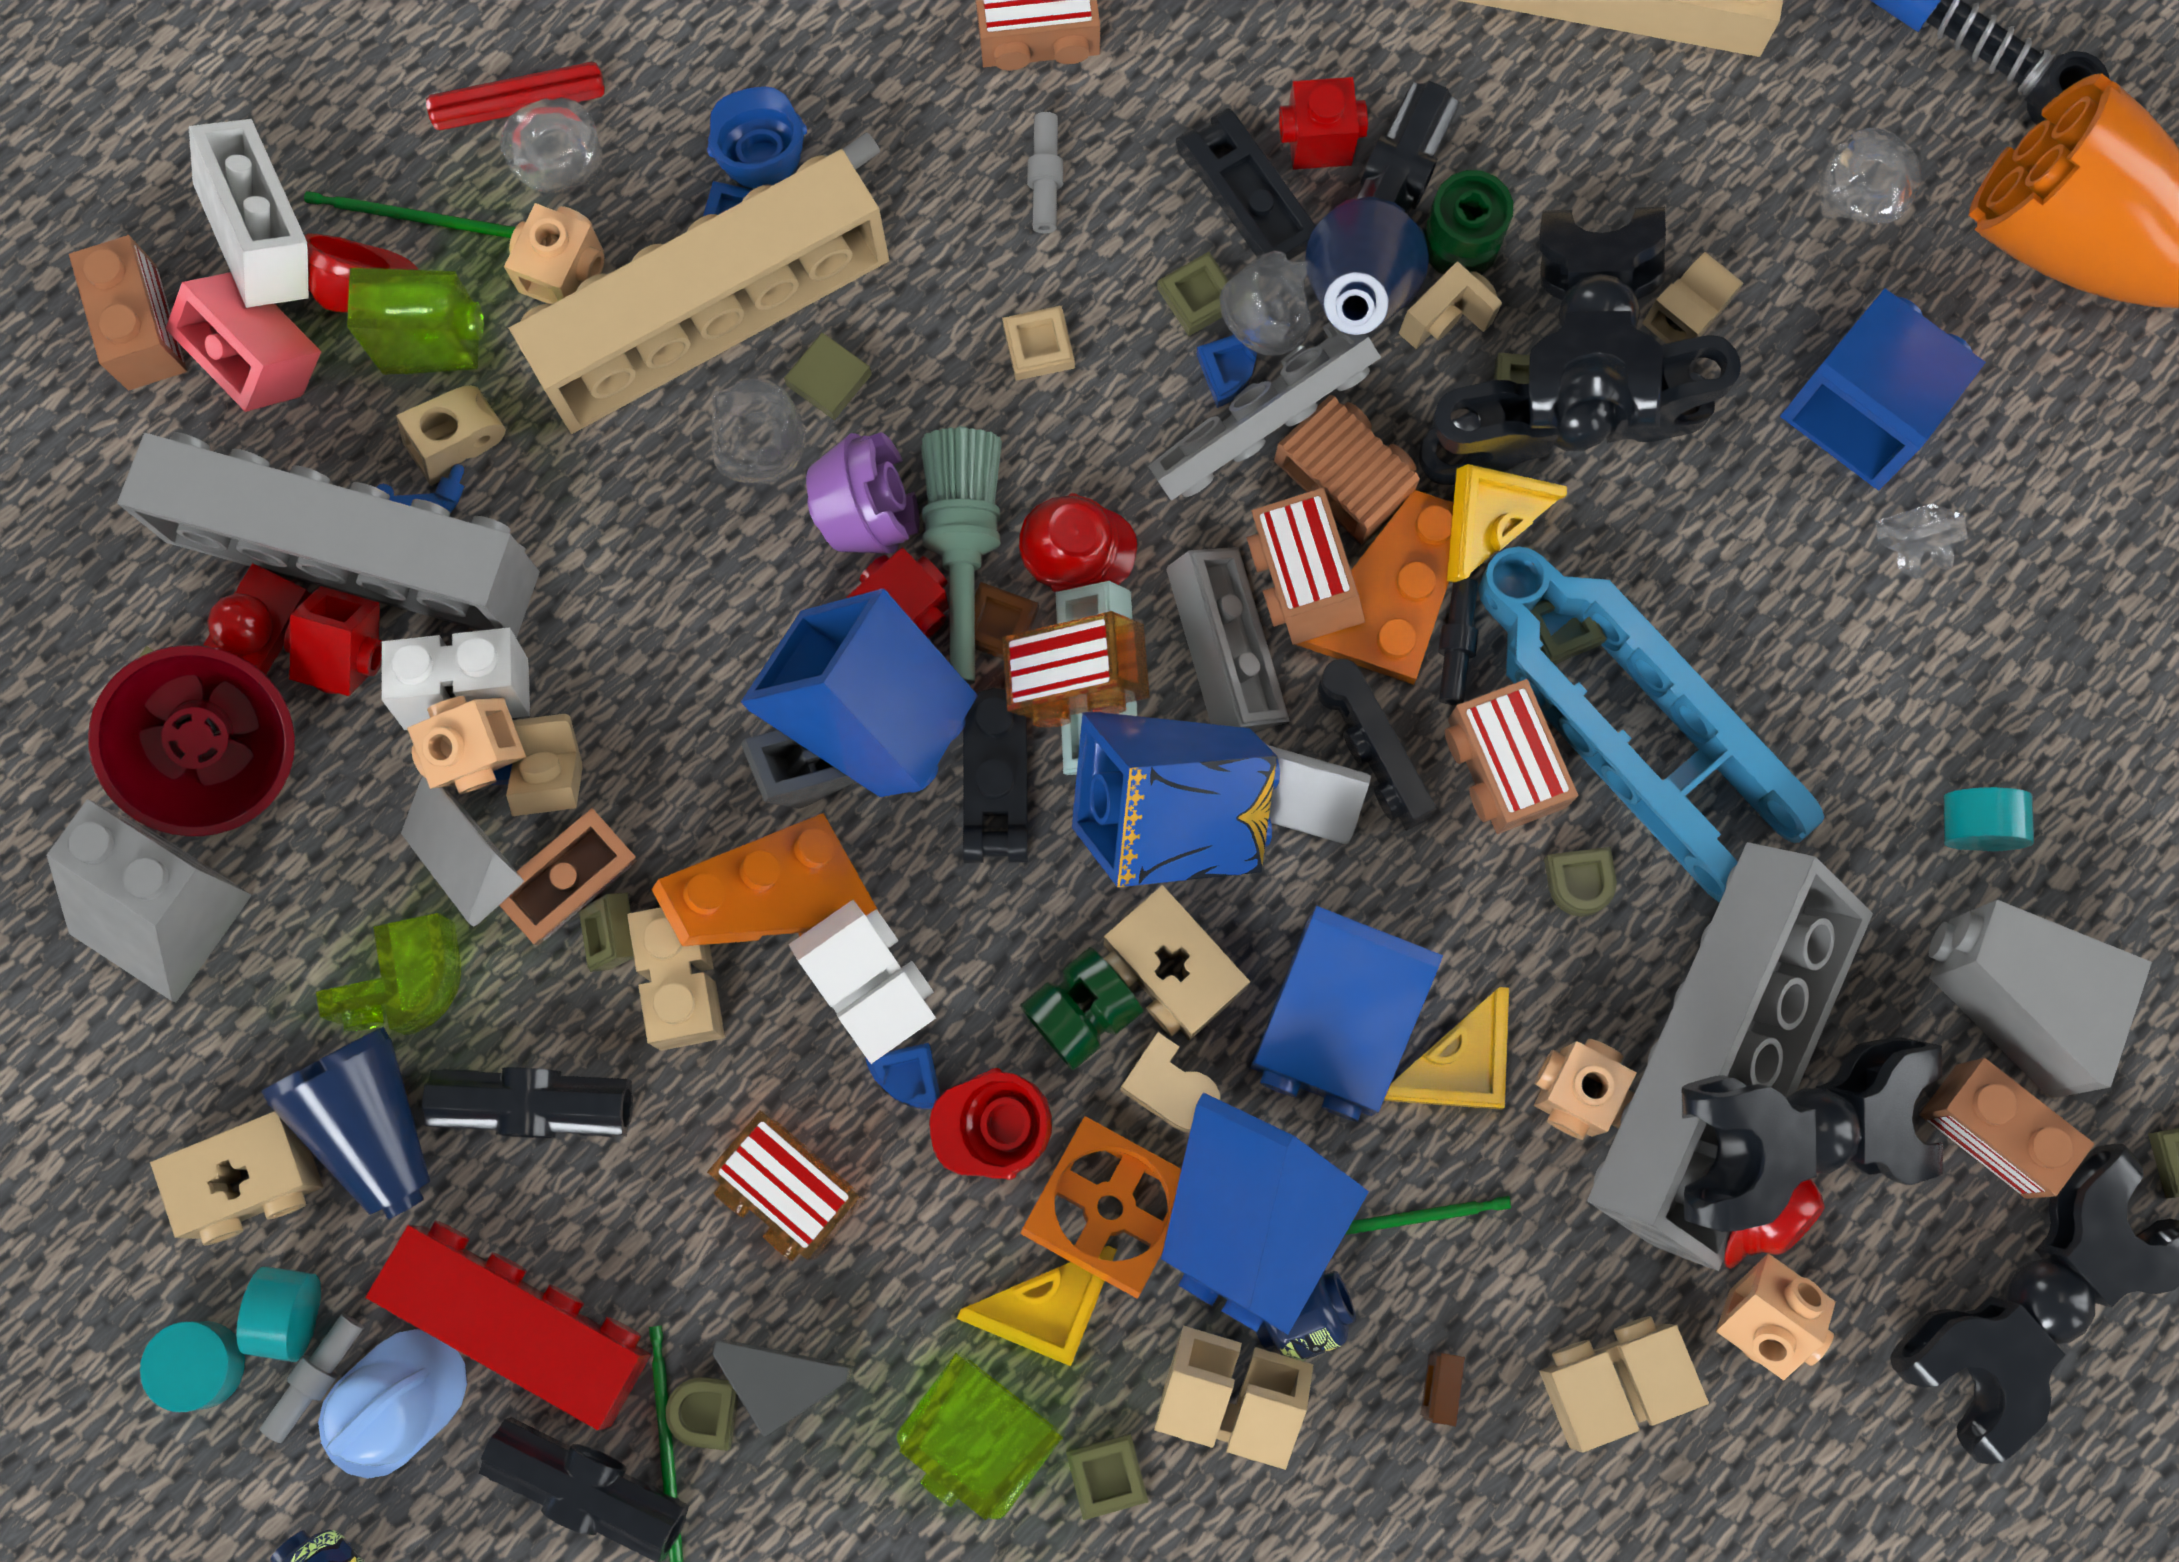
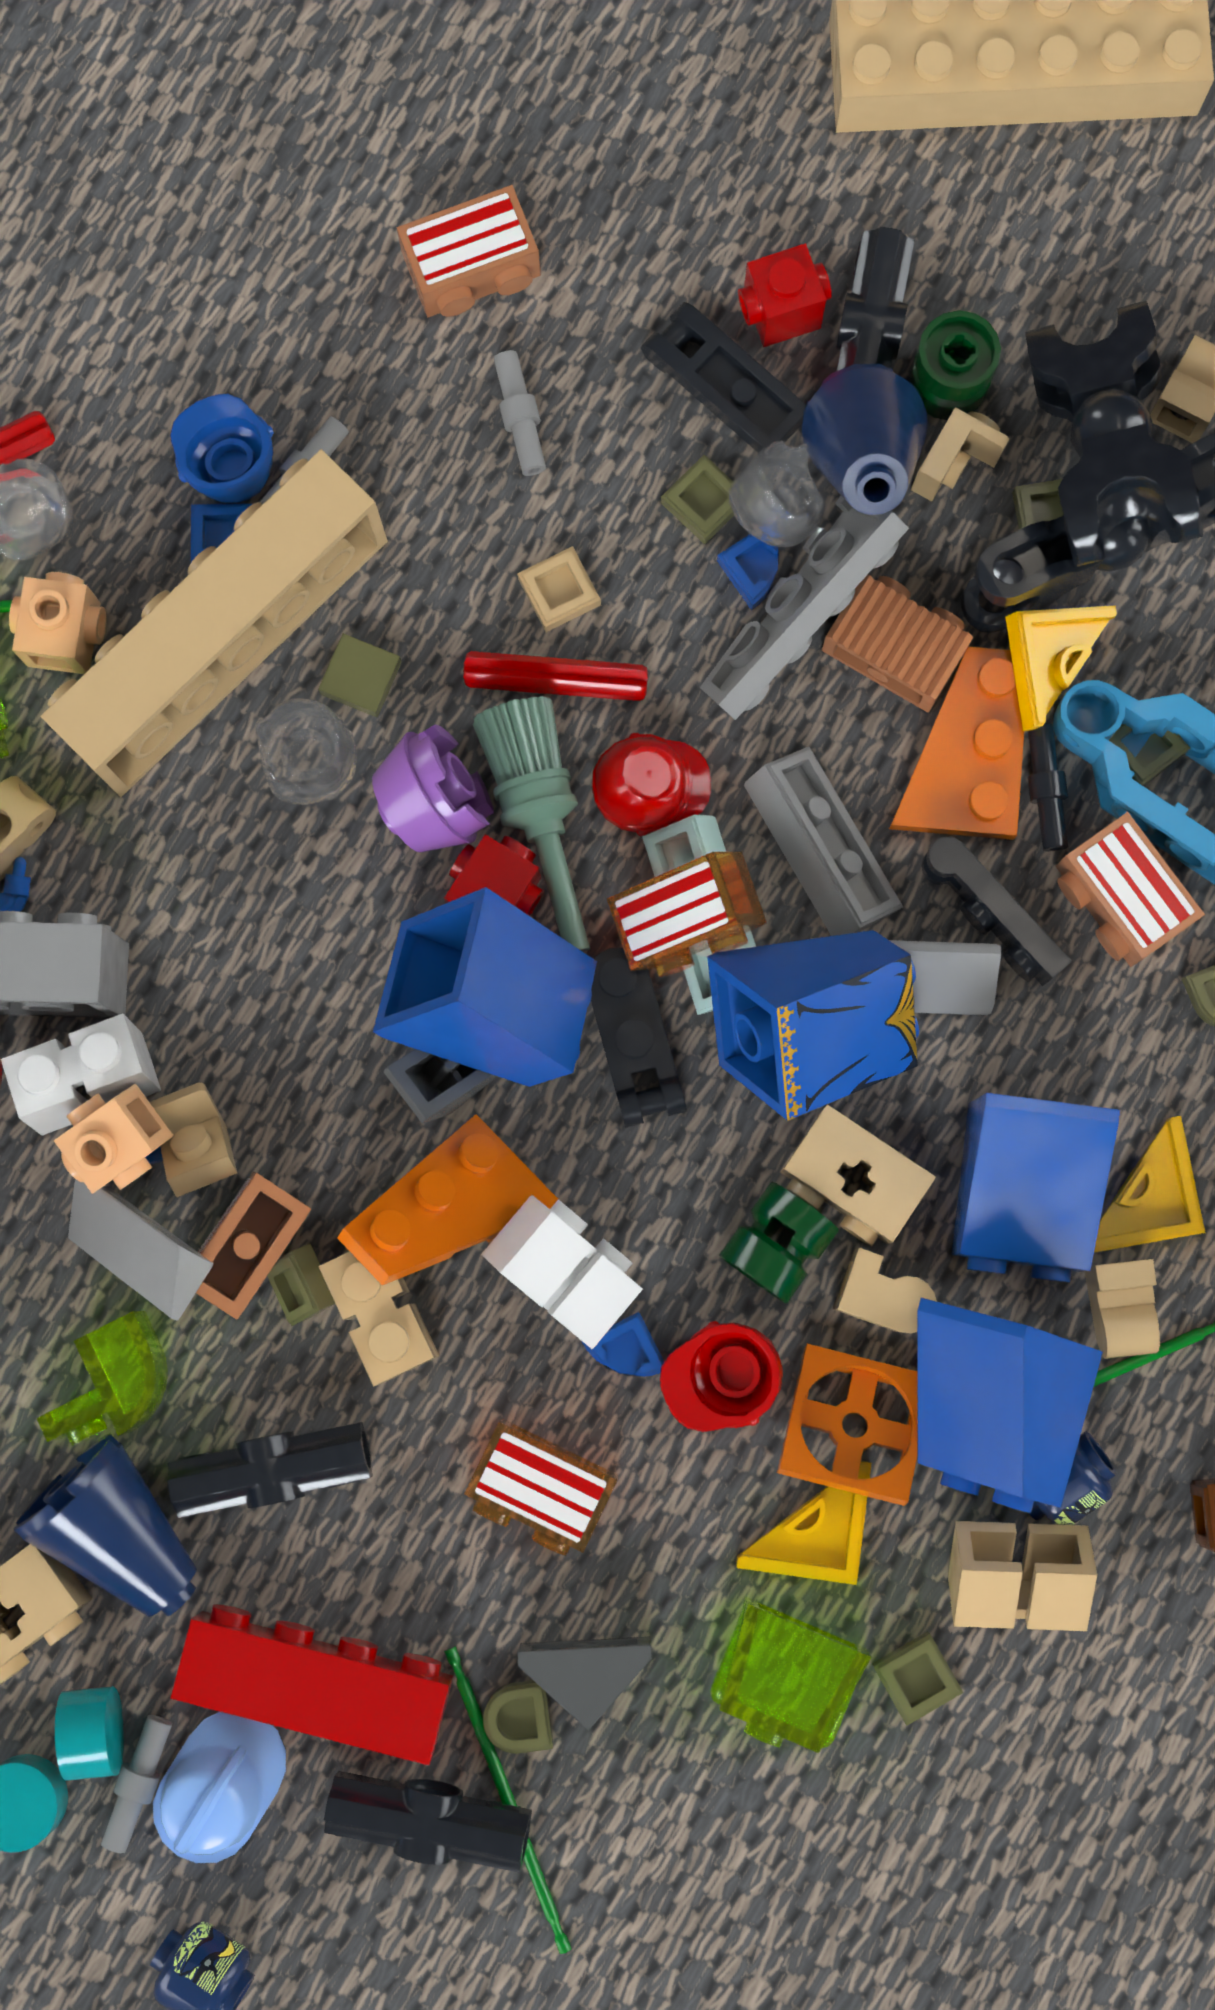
camera: 10 degrees left, 5 degrees up
(1000, 615) = (597, 876): reddish brown tile -> none
(1013, 421) = (555, 676): none -> red axle
(1307, 566) = (885, 753): brick -> none
(1405, 1159) = (1124, 1308): none -> tan leg

